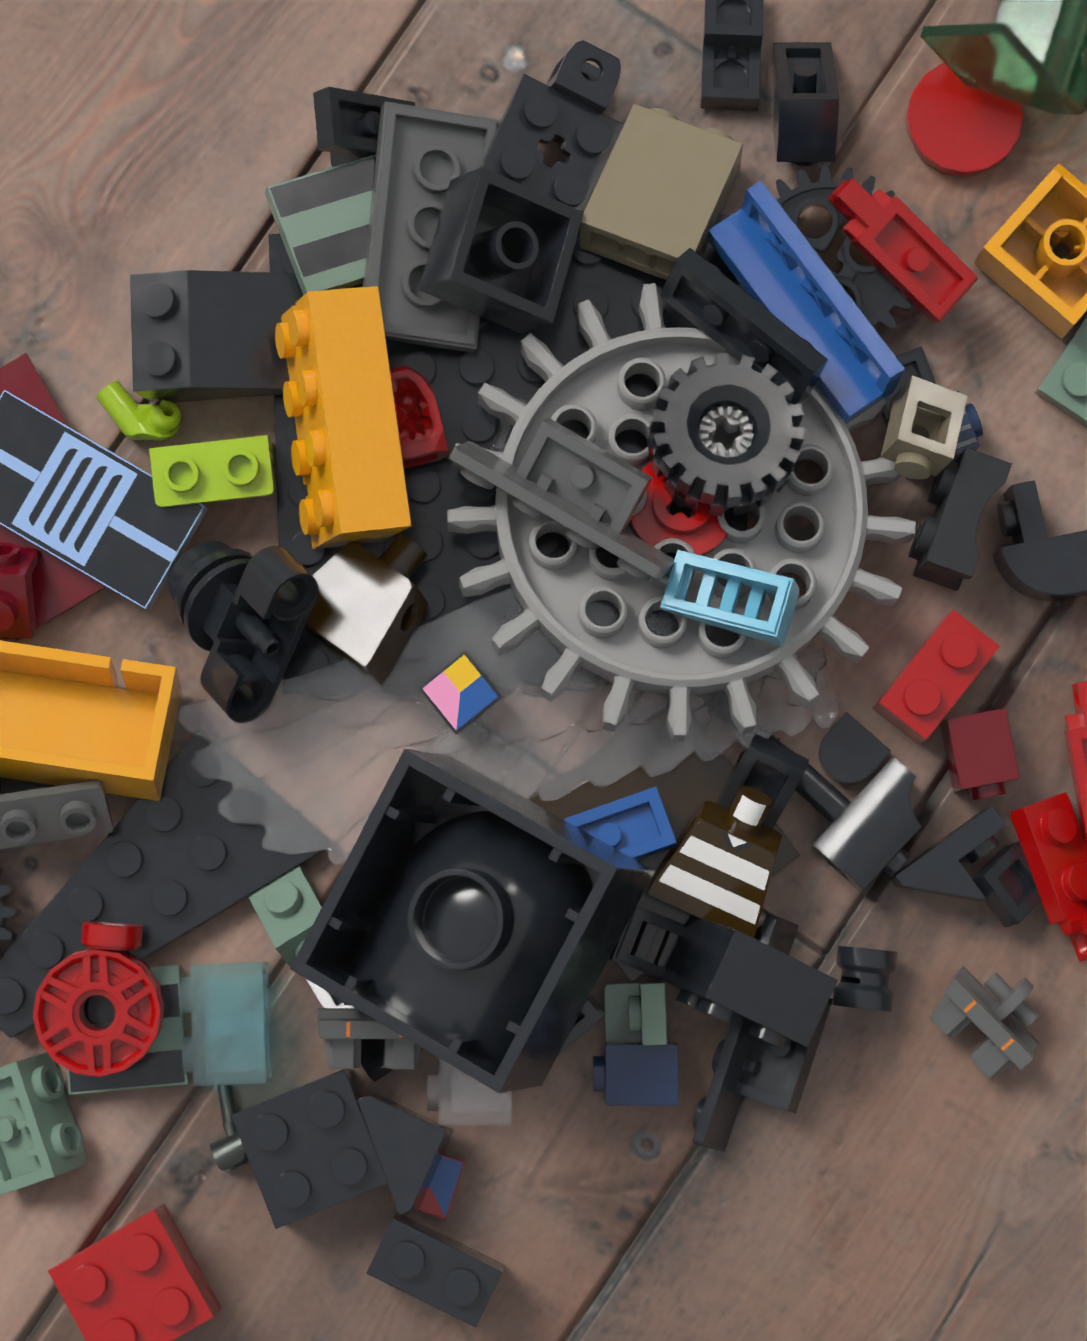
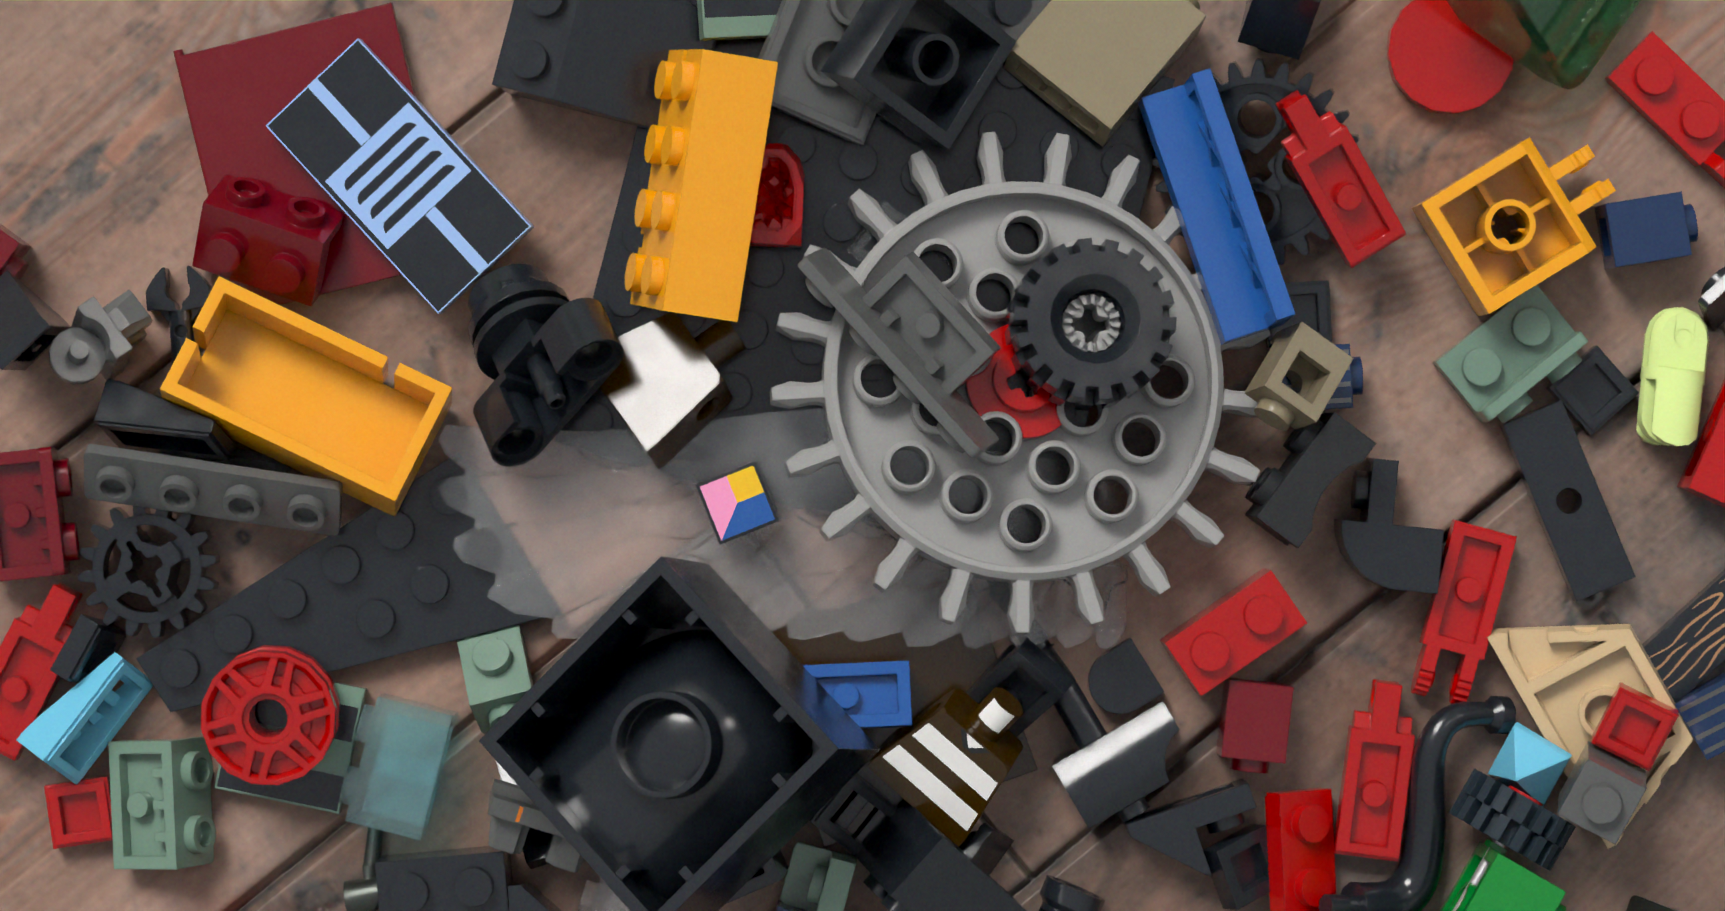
camera: 10 degrees right, 5 degrees up
(112, 935) = (306, 642): red tile -> none
(139, 420) = (489, 109): lime arm -> none
(213, 471) = (550, 193): lime bracket -> none
(741, 323) = (1144, 212): black plate -> none
(748, 624) = (1090, 526): medium azure slope -> none

